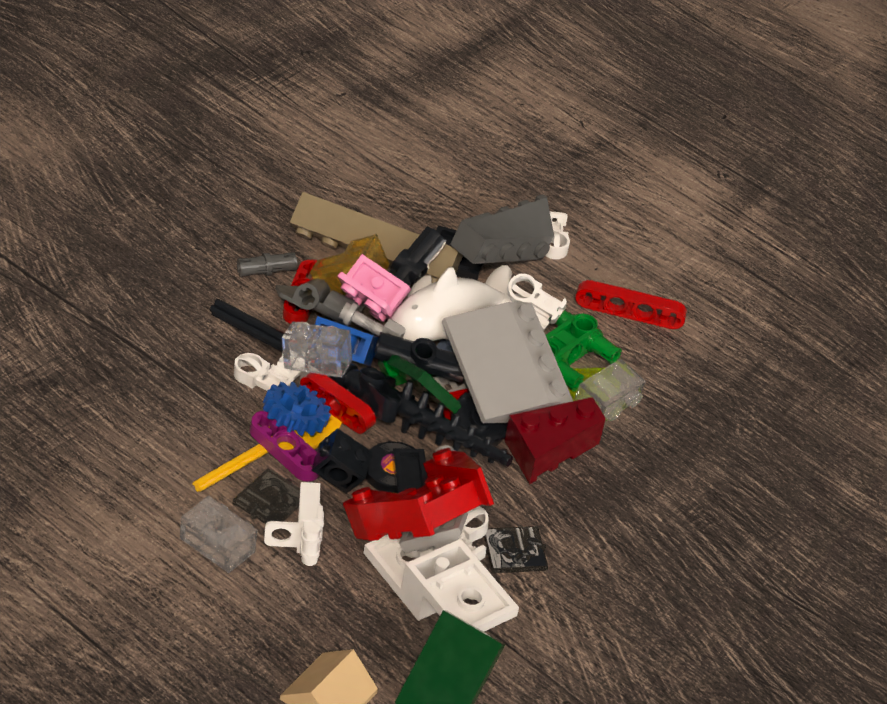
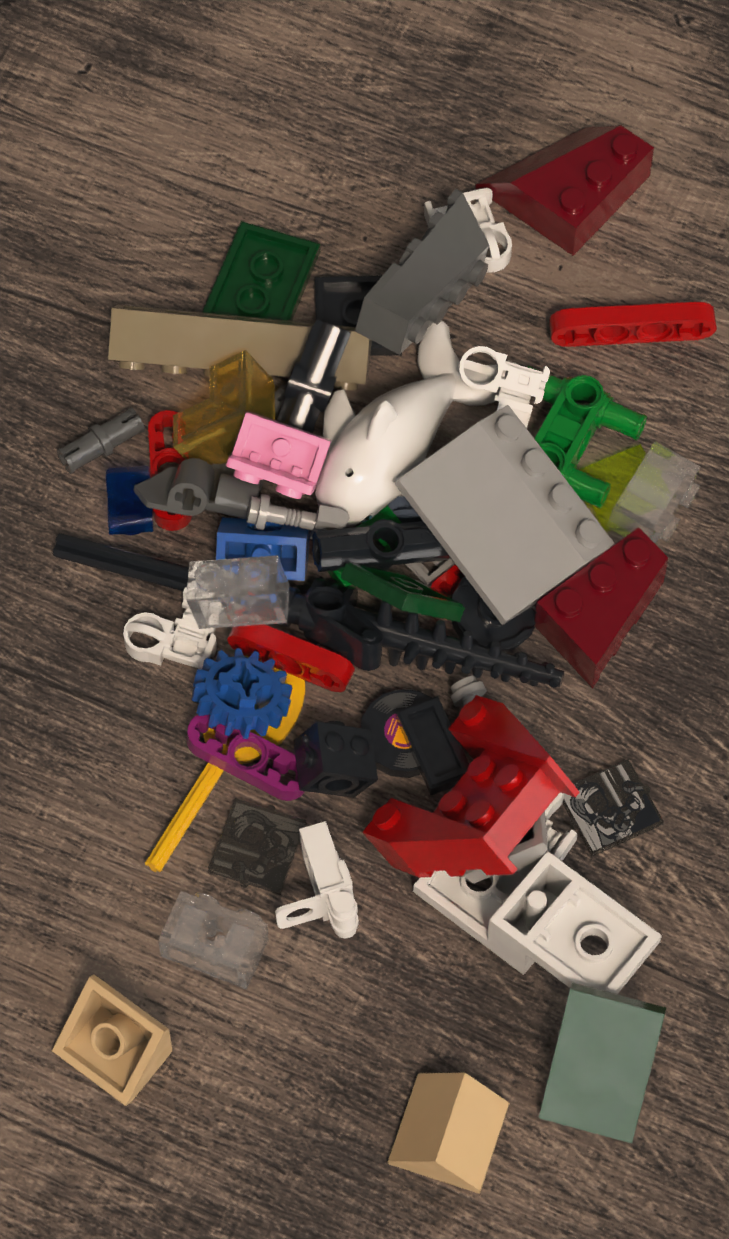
camera: 10 degrees left, 20 degrees up
(127, 566) = (113, 1041): none -> tan slope
(266, 298) = (125, 510): none -> clear blue bracket
(410, 211) = (263, 274): none -> dark green tile
(623, 229) = (574, 183): none -> dark red wedge

